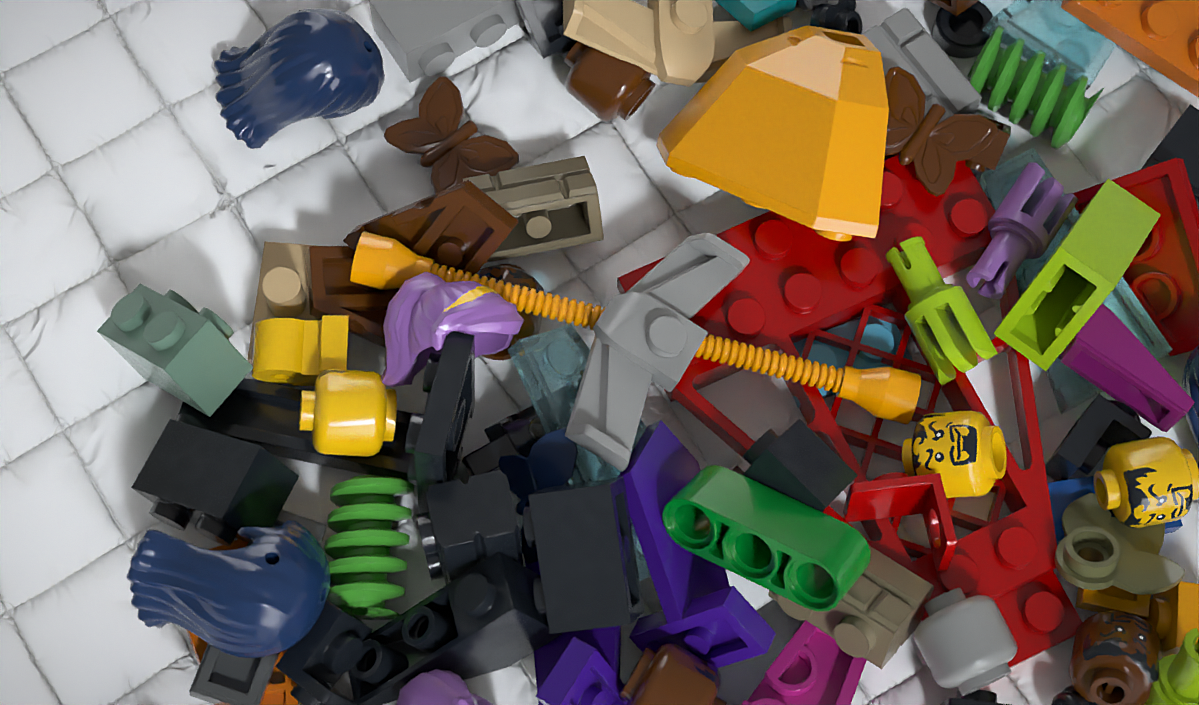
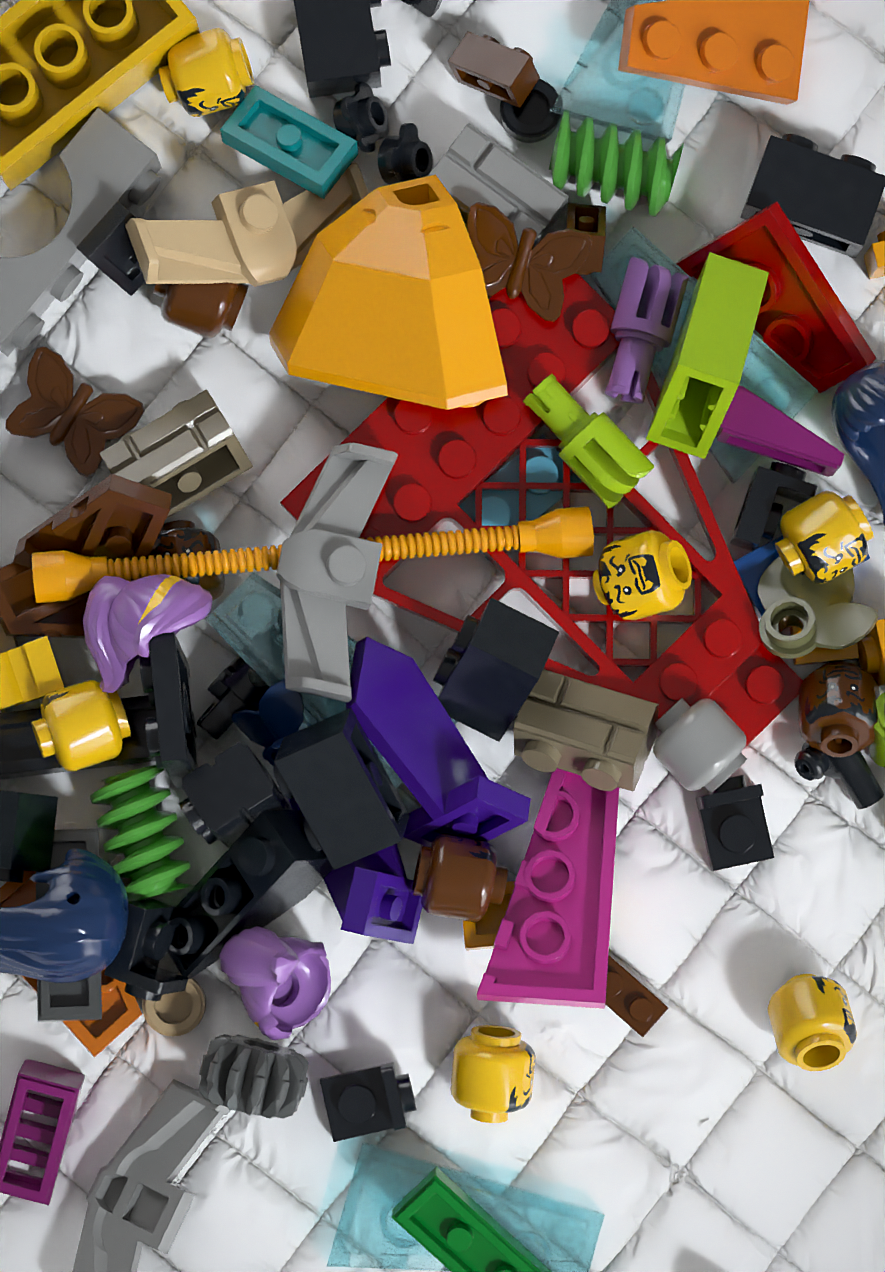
camera: 15 degrees left, 15 degrees up
(767, 537) = (495, 719): green beam -> none
(903, 495) = (602, 630): red bracket -> none

